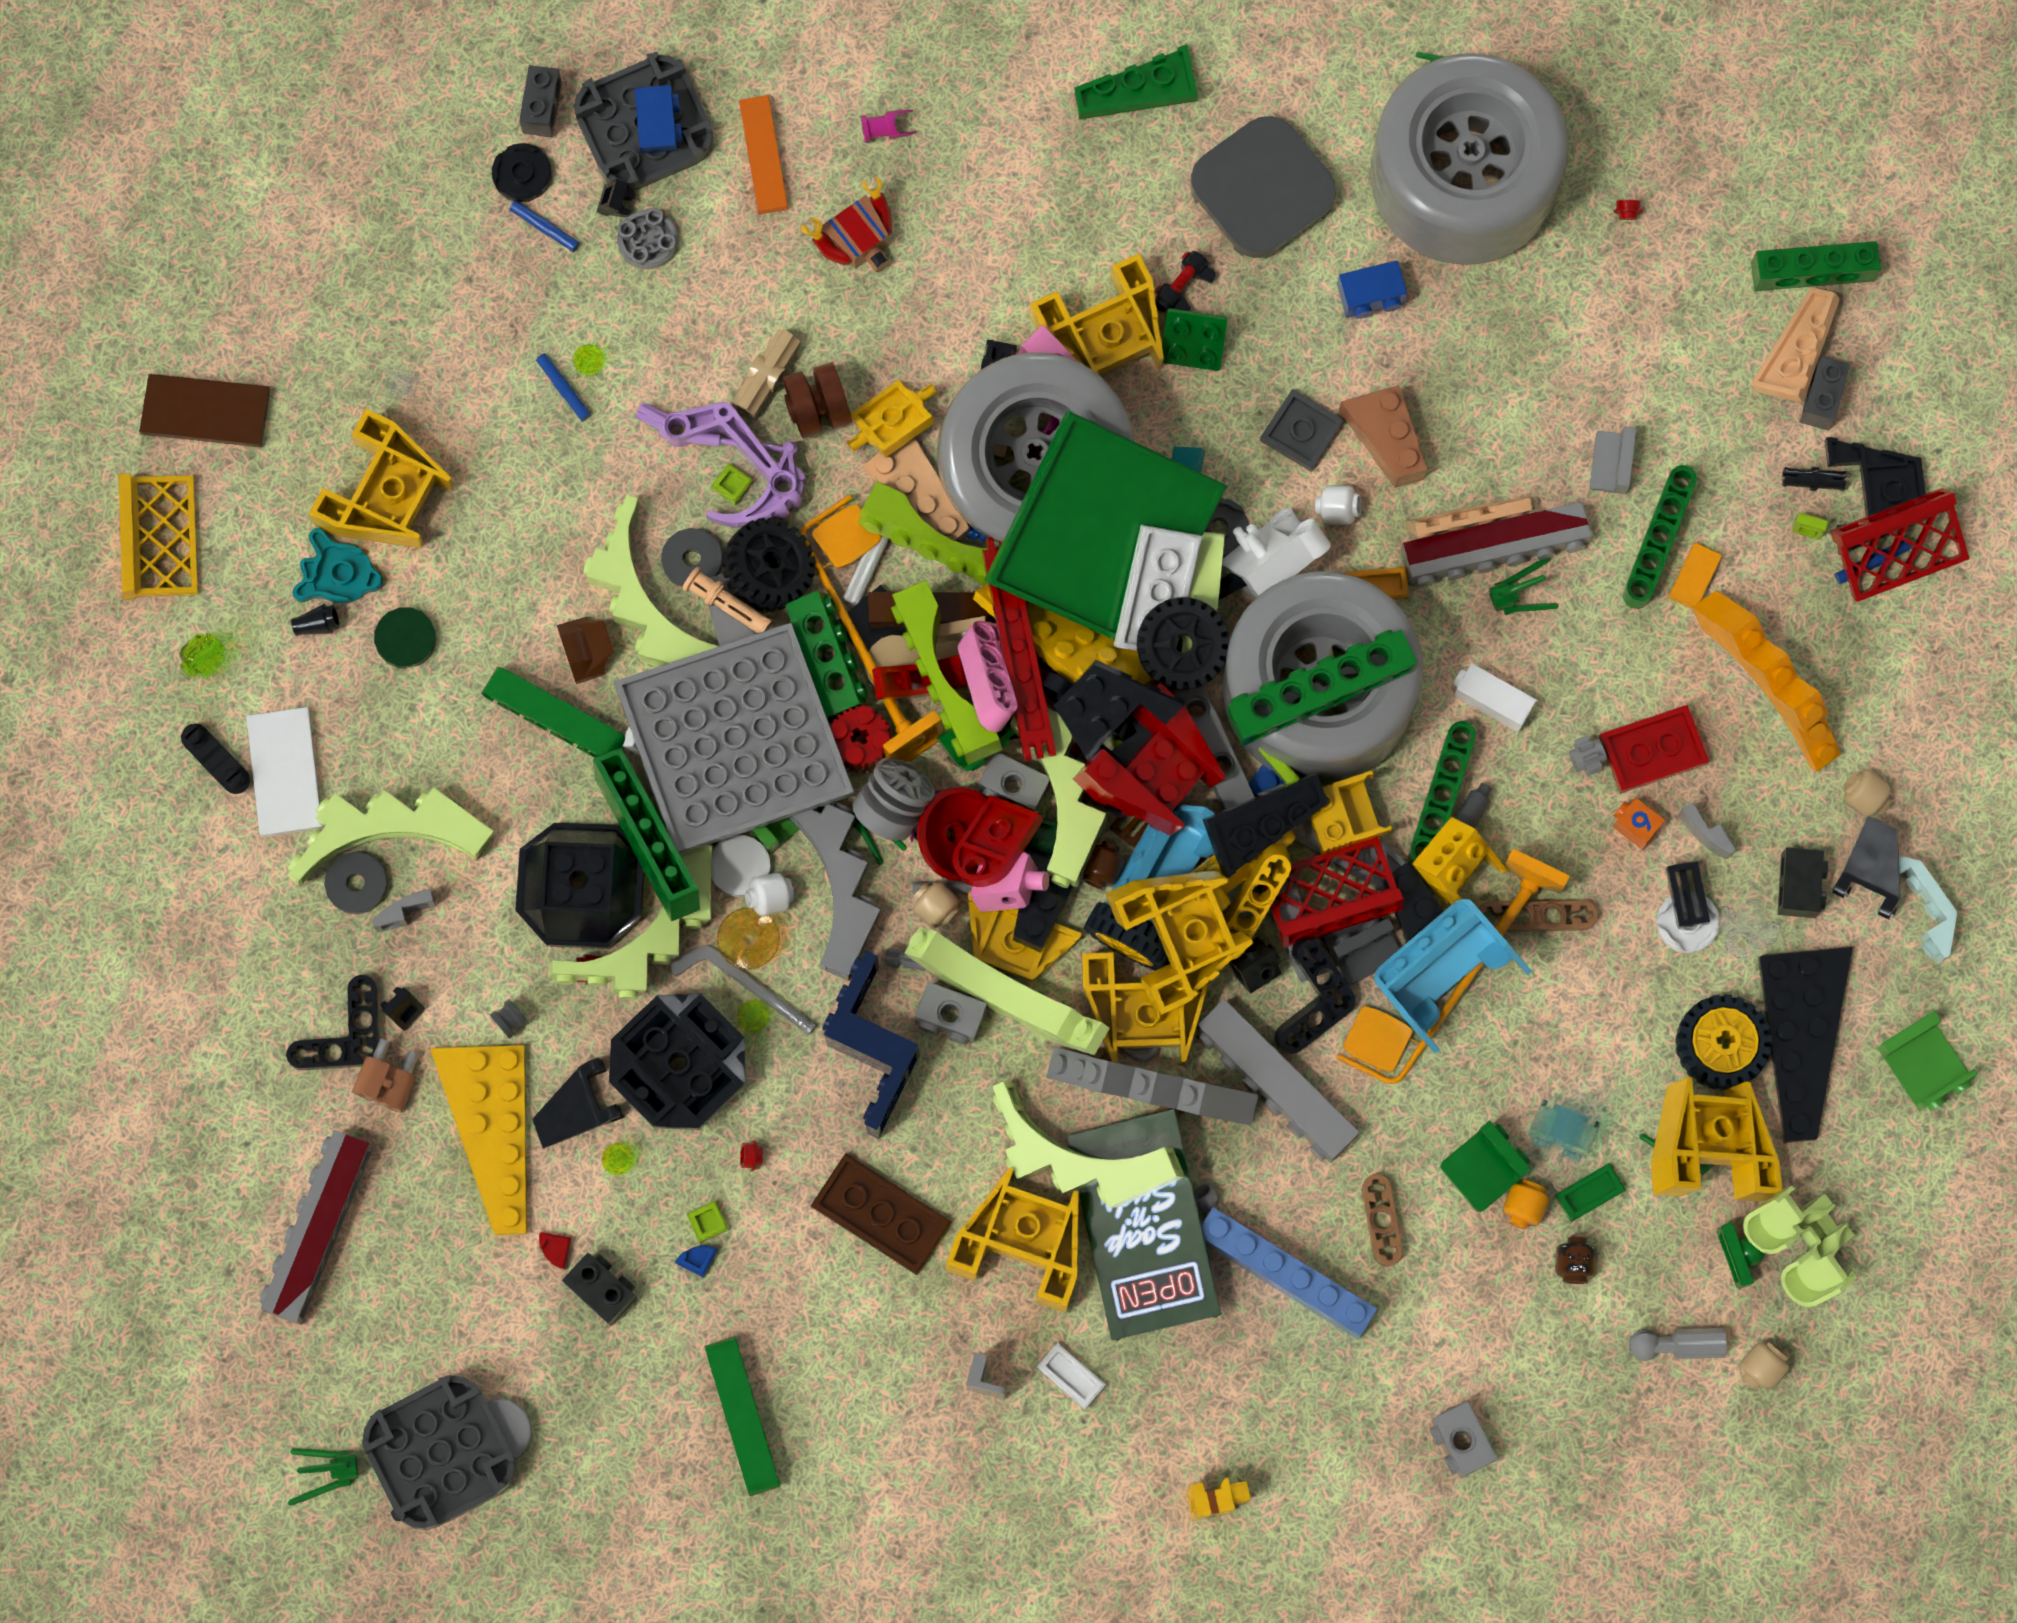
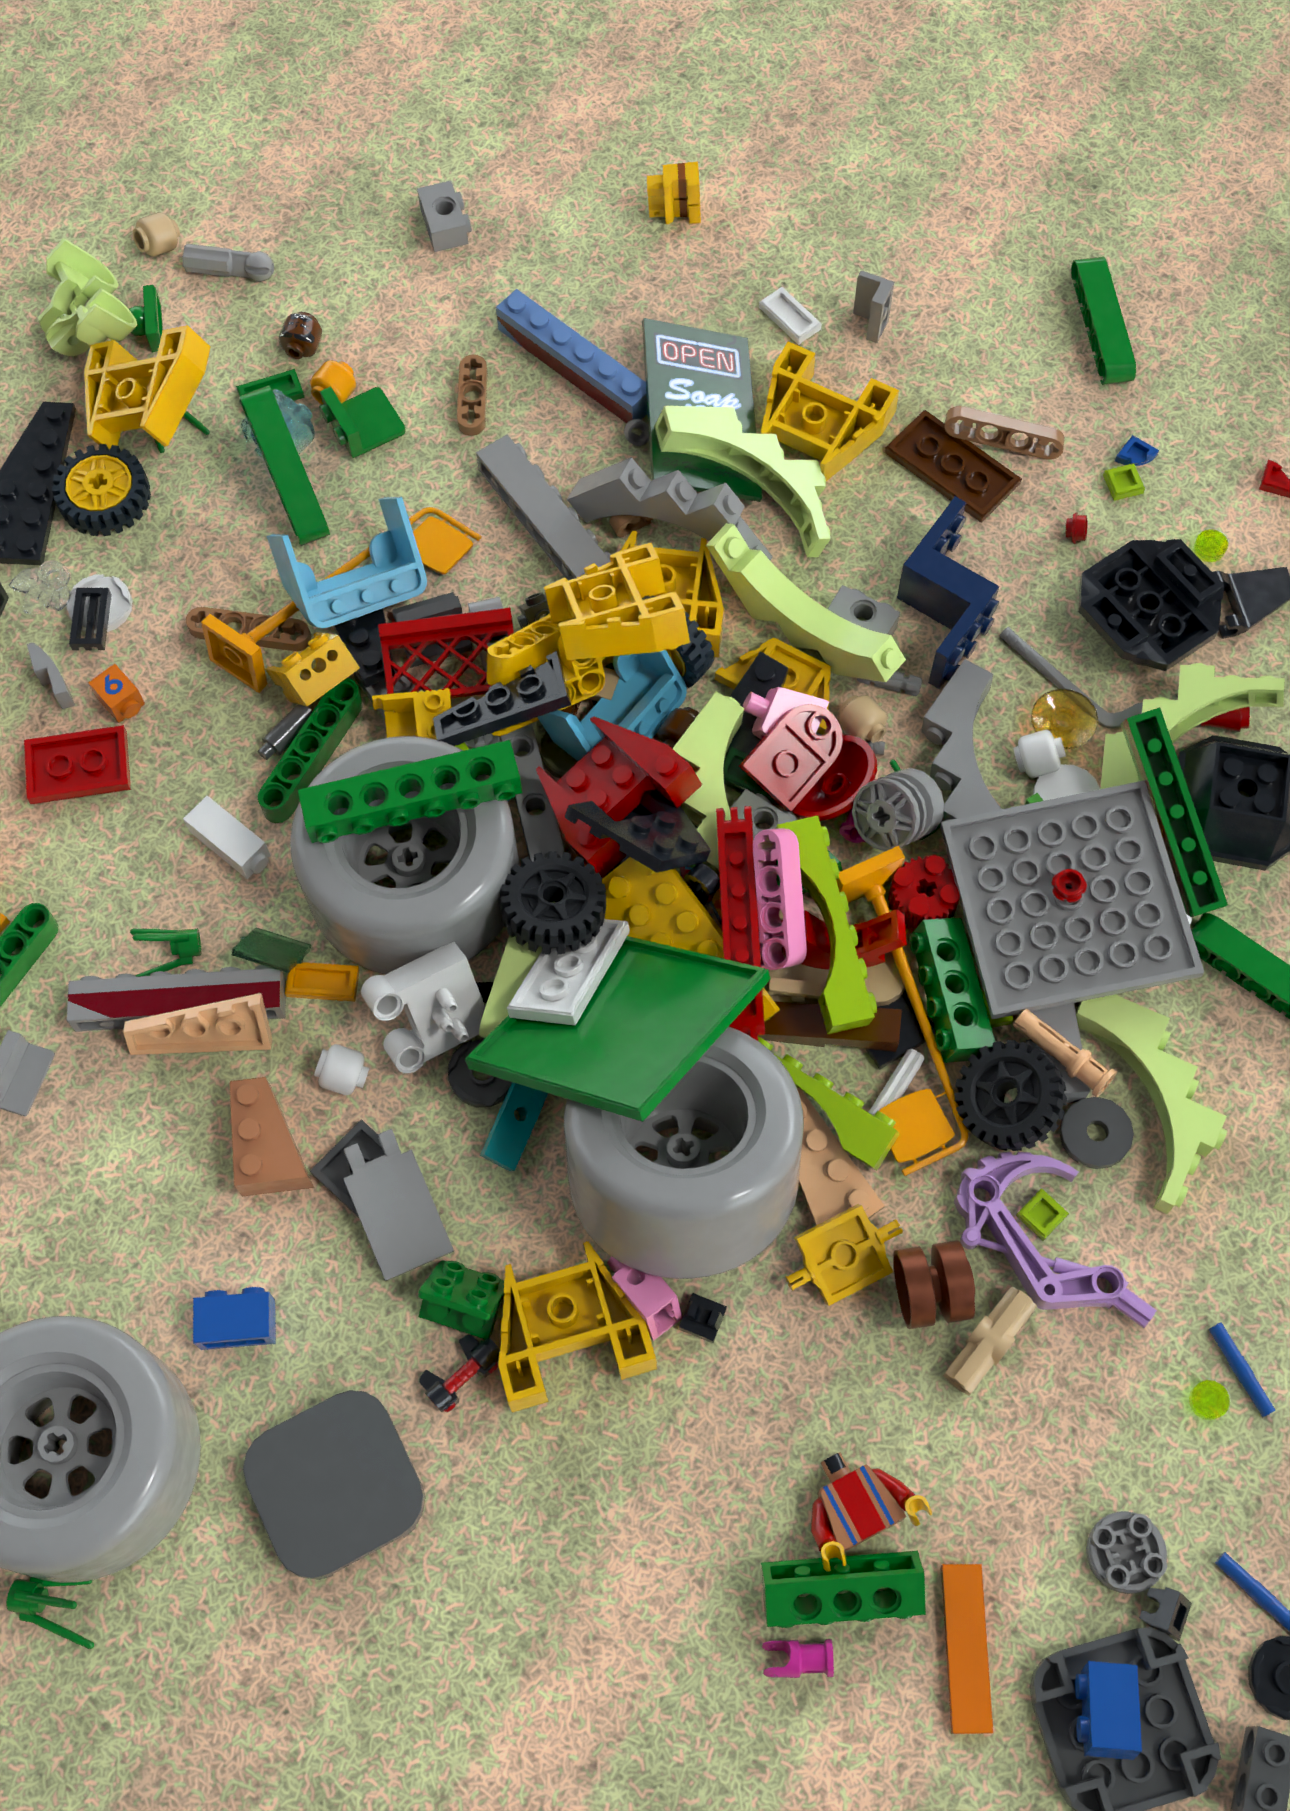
camera: 170 degrees left, 10 degrees down
(586, 647) = (1229, 1048): reddish brown slope -> none
(600, 1288) = (1234, 434): pearl dark grey brick -> none
(736, 730) = (1071, 877): none -> red plate
(753, 1016) = (1064, 652): clear neon green tile -> none
(833, 1249) = (1003, 436): none -> medium nougat beam
(842, 175) = (860, 1577): none -> green brick
(1150, 85) = (457, 1657): green wing -> none
(1265, 398) = (395, 1208): none -> light grey tile
(1324, 1002) = (475, 578): black beam -> none
(1427, 597) = (271, 950): none -> clear green piece
(1541, 1071) = (284, 465): none -> green beam
(1587, 755) = (147, 764): light grey gear -> none

